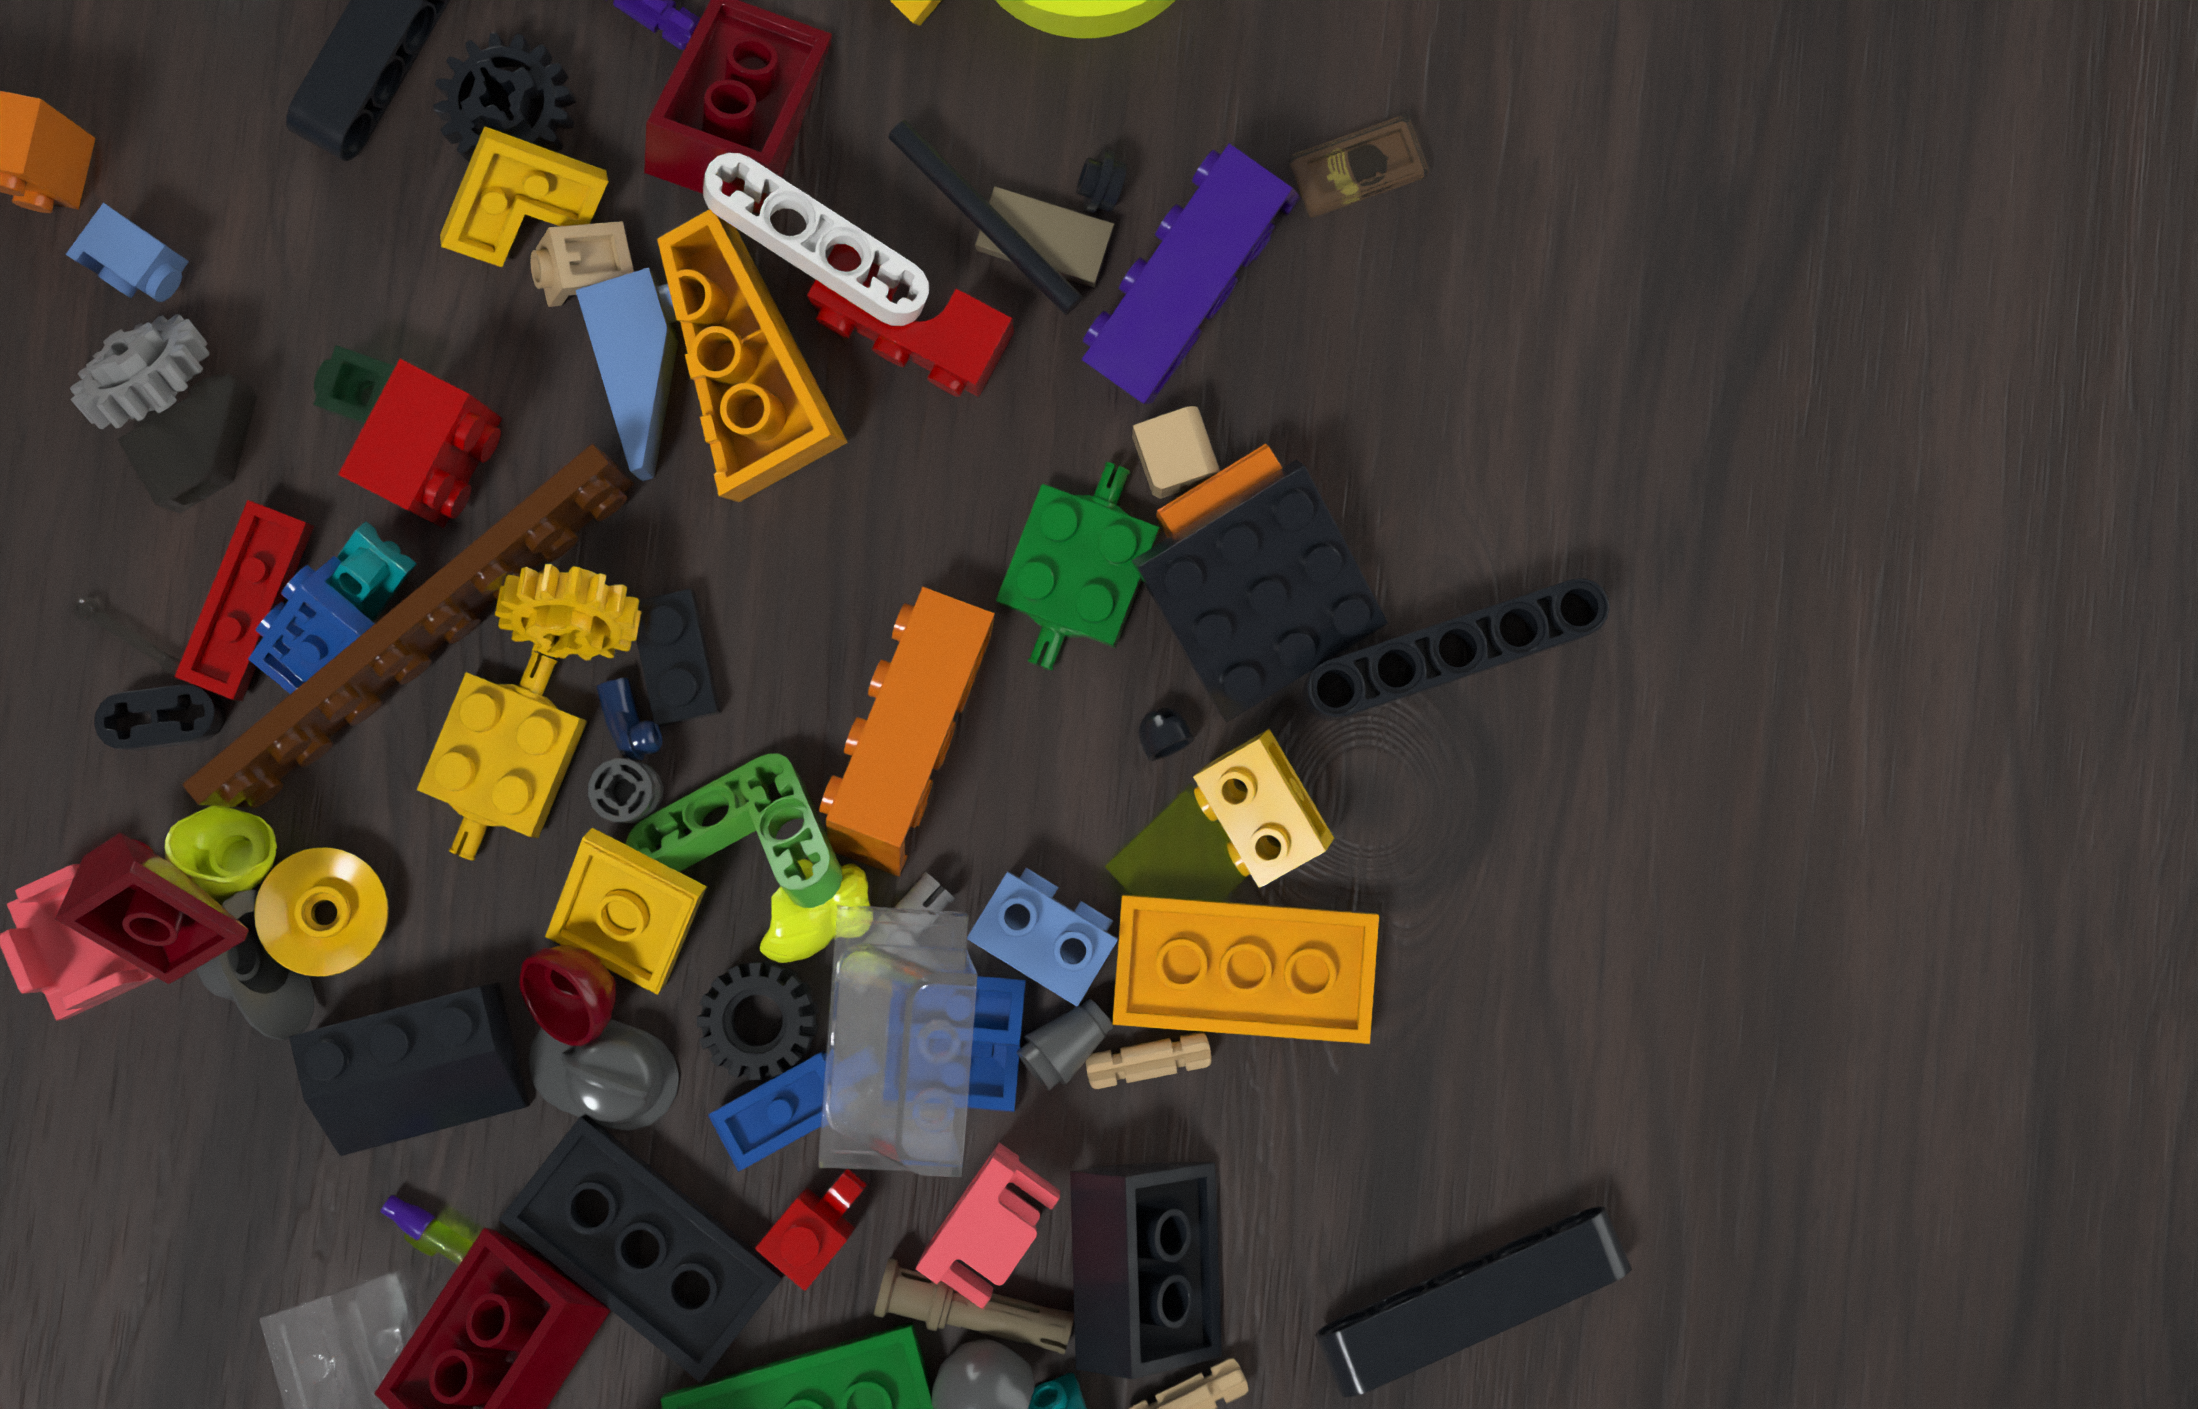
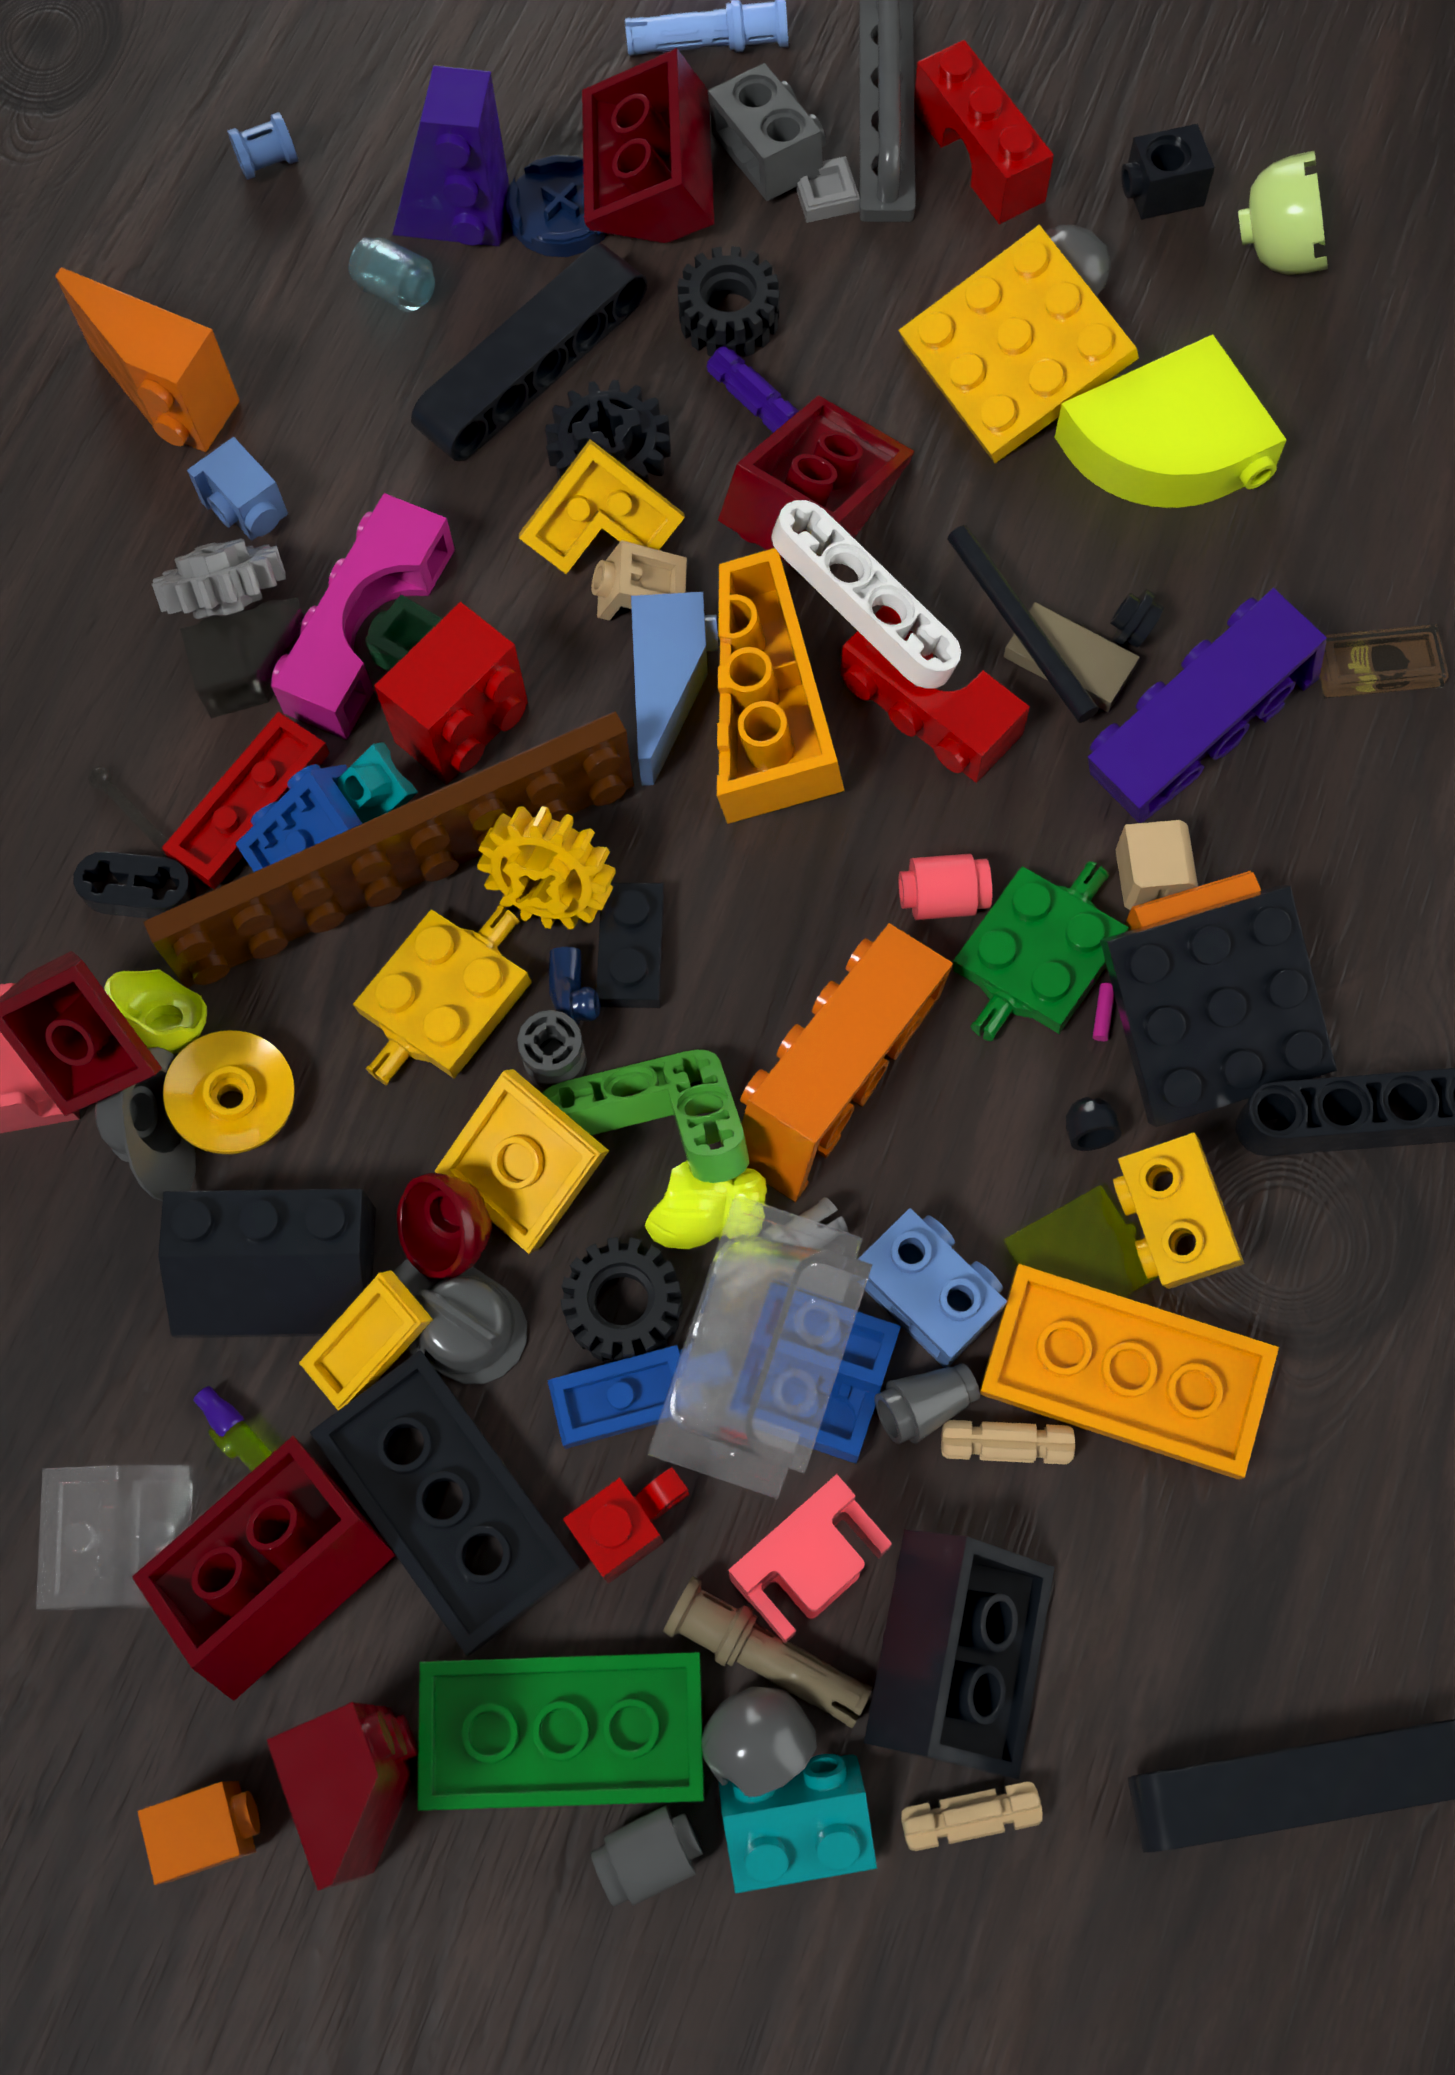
camera: 15 degrees right, 15 degrees down
(313, 293) = (394, 554): none -> dark pink arch
(526, 1121) = (366, 1339): none -> yellow tile
(971, 525) = (945, 886): none -> coral brick
(1154, 620) = (1103, 1012): none -> dark pink piece

